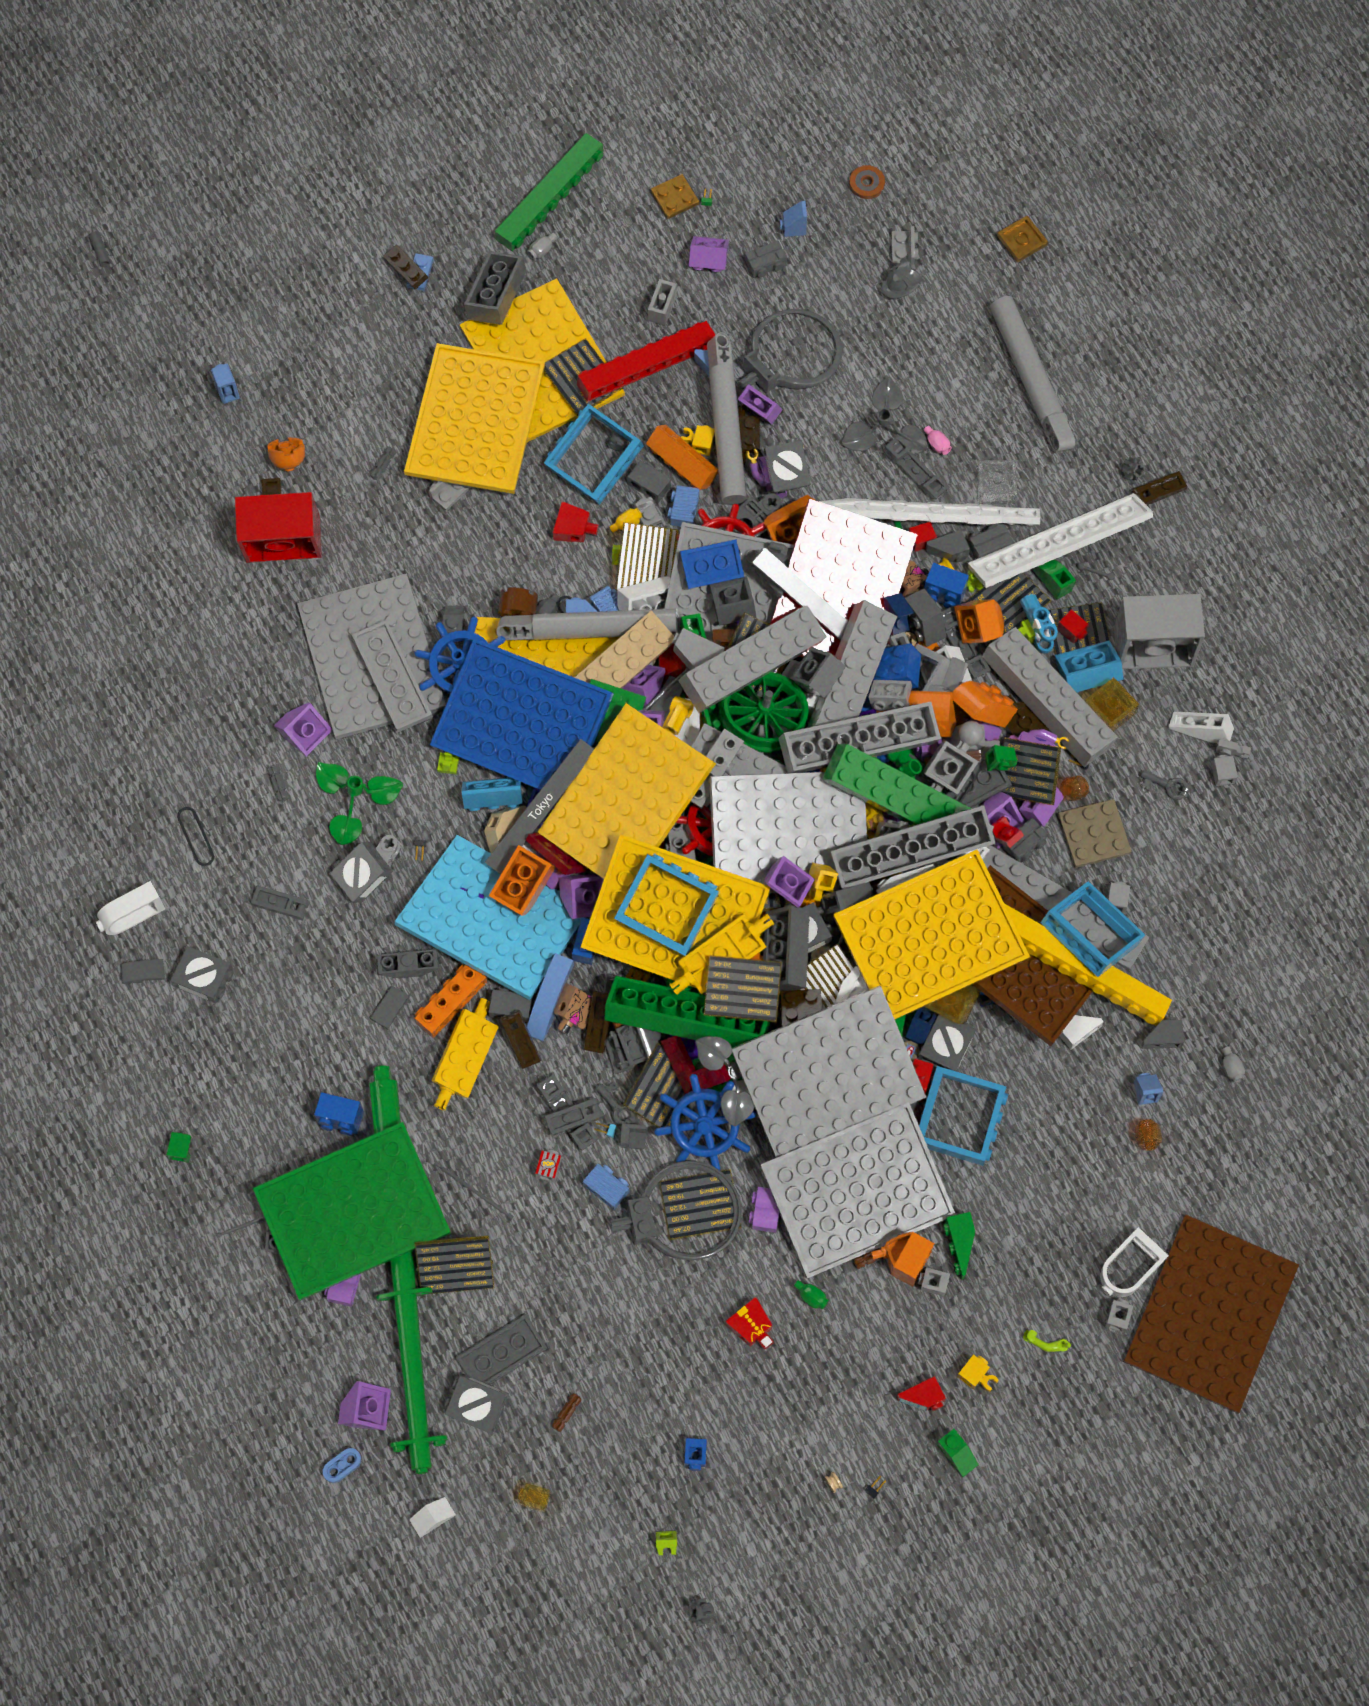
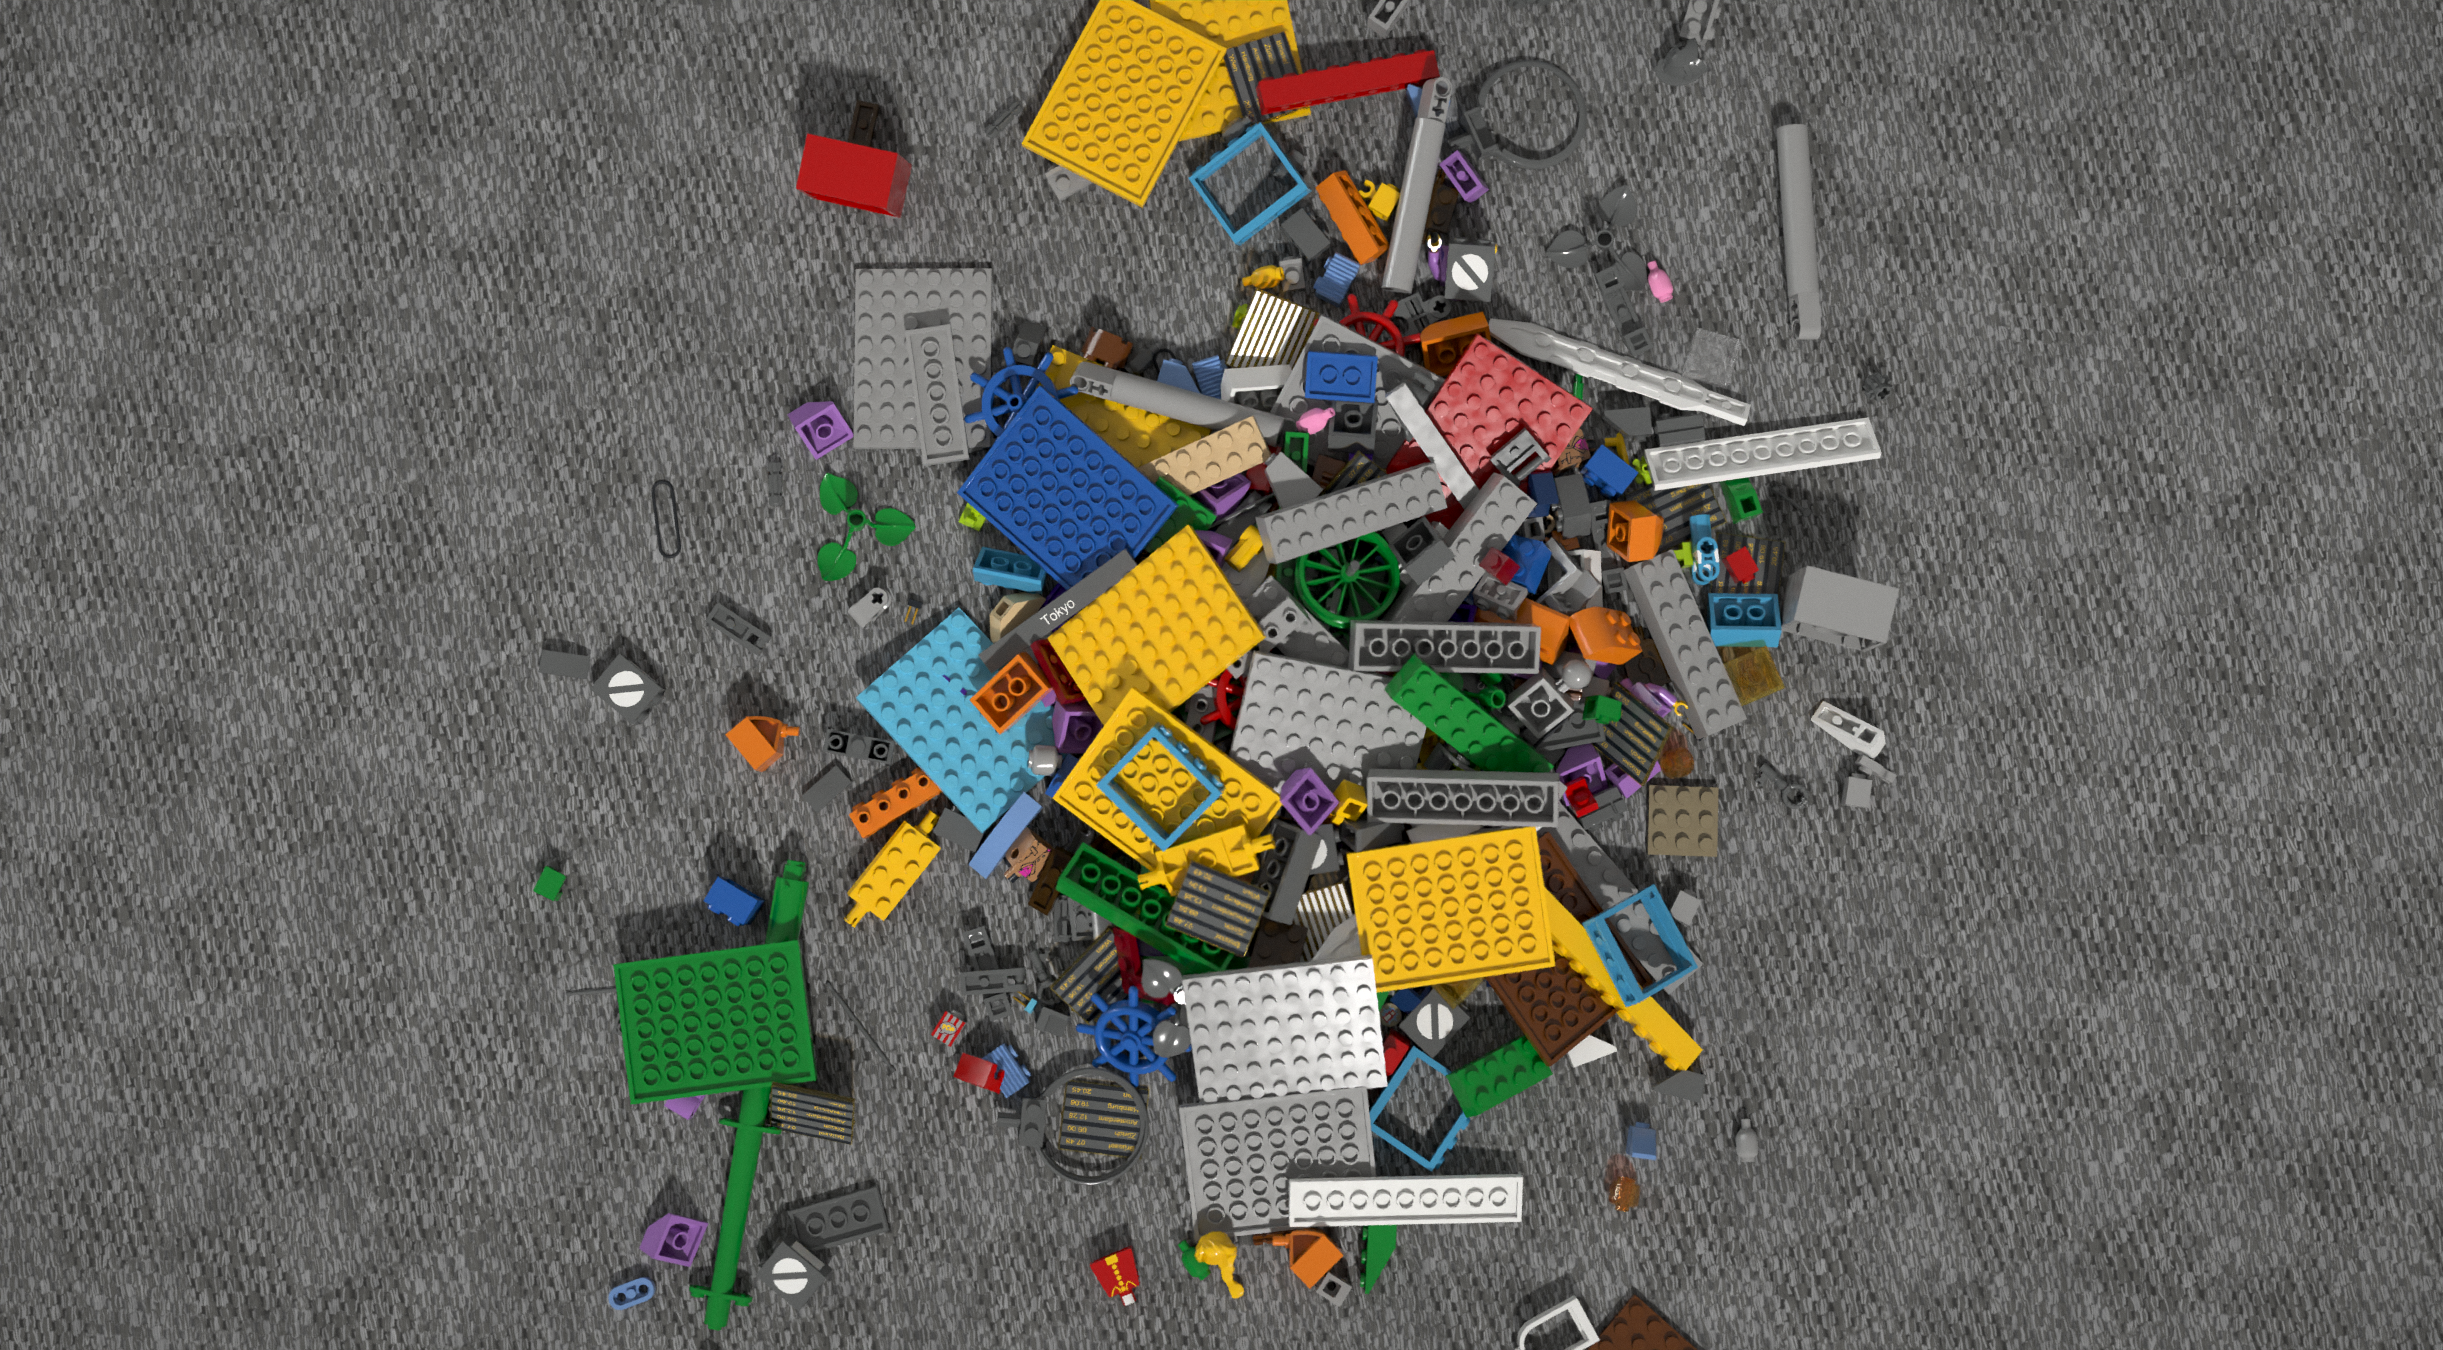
camera: 20 degrees right, 15 degrees up
(129, 910) = (567, 591): white window -> none
(286, 454) = (893, 76): orange cylinder -> none
(324, 980) = (761, 740): none -> orange piece
(361, 872) = (837, 623): dark grey brick -> none
(521, 1040) = (960, 874): dark brown plate -> none
(564, 926) = (1044, 760): none -> light grey head
(566, 1412) = (889, 1308): reddish brown axle -> none
(569, 417) = (1236, 128): none -> dark grey plant
(573, 524) = (1201, 264): red torso -> none
(585, 1192) = (979, 1073): none -> red hinge
(701, 603) = (1314, 420): none -> bright pink plant
(766, 1212) = (1171, 1154): medium lavender brick -> none
(831, 1278) = (1219, 1250): none -> yellow hair
(868, 581) = (1515, 452): none -> plate
(883, 668) = (1499, 566): none -> dark red brick
(924, 534) = (1601, 398): red brick -> none
(970, 1190) = (1405, 1200): none -> white plate
(1013, 1066) = (1497, 1076): none -> green brick
(1022, 238) = (1845, 50): pearl gold plate -> none
(1161, 488) = (1902, 421): dark brown plate -> none

